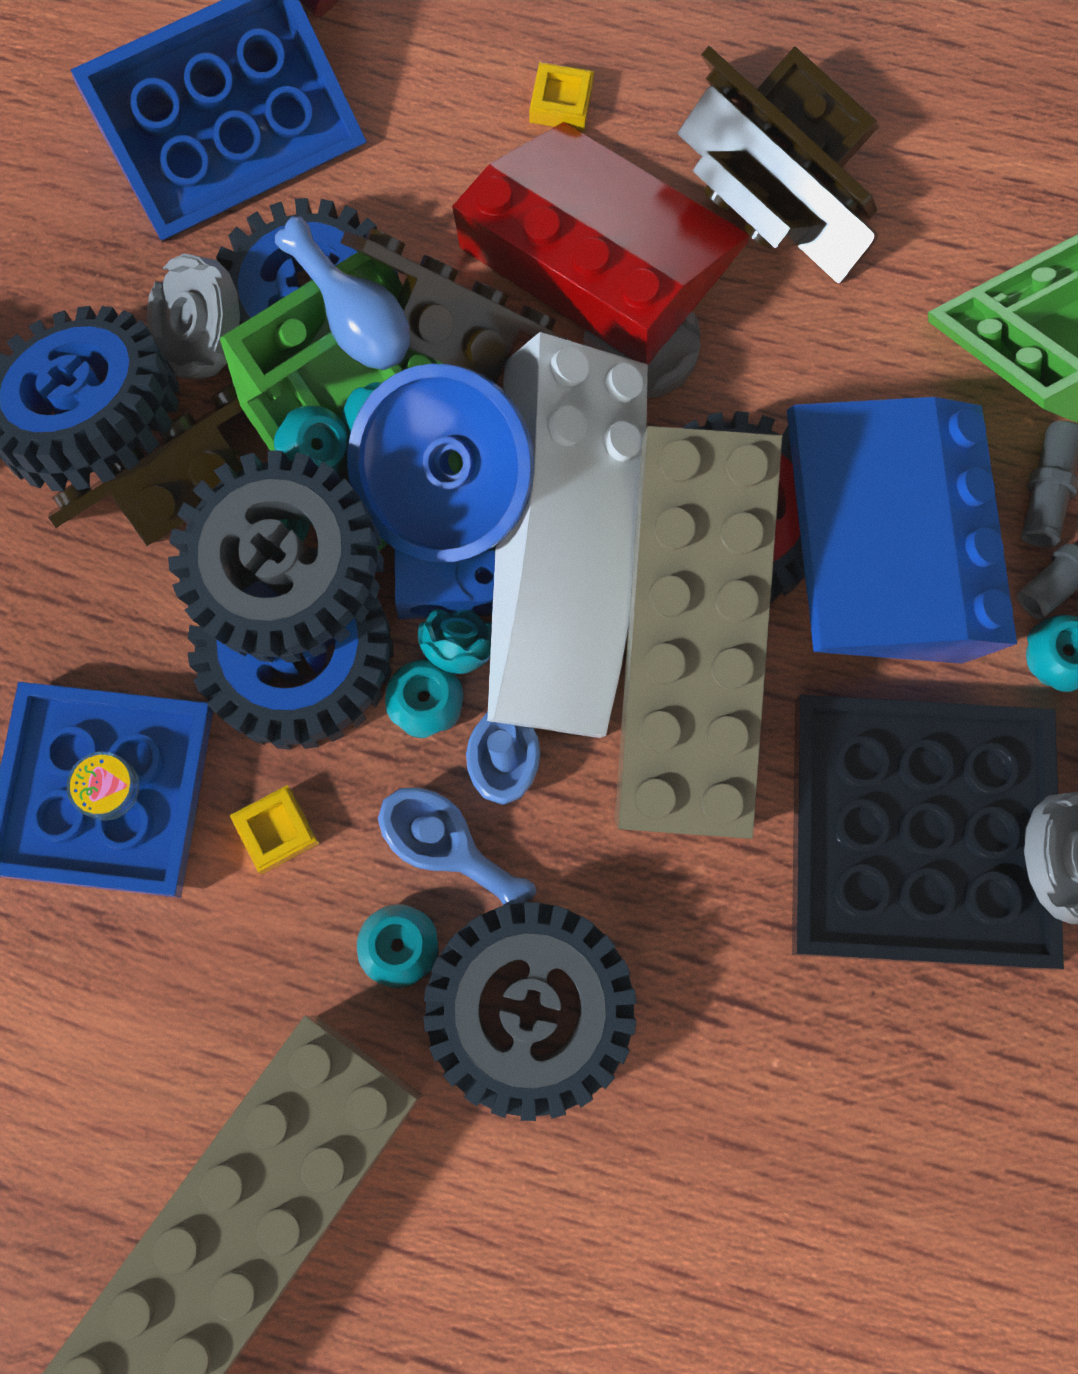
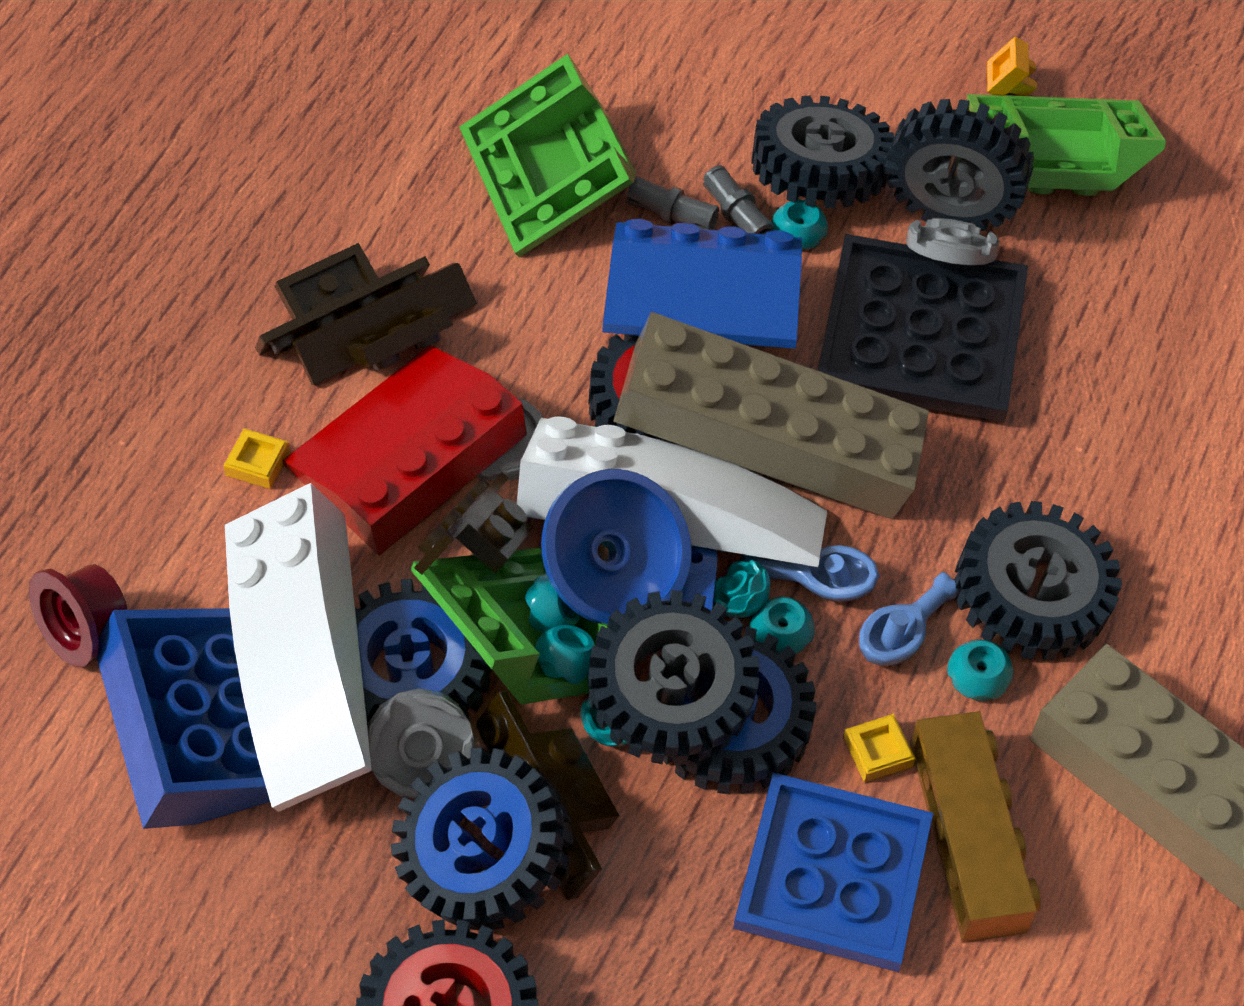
camera: 80 degrees left, 20 degrees down
(103, 786) = (839, 850): tile -> none
(164, 946) = (974, 827): none -> pearl gold brick
(298, 158) = (298, 644): none -> white slope
(359, 311) = (484, 573): medium blue piece -> none

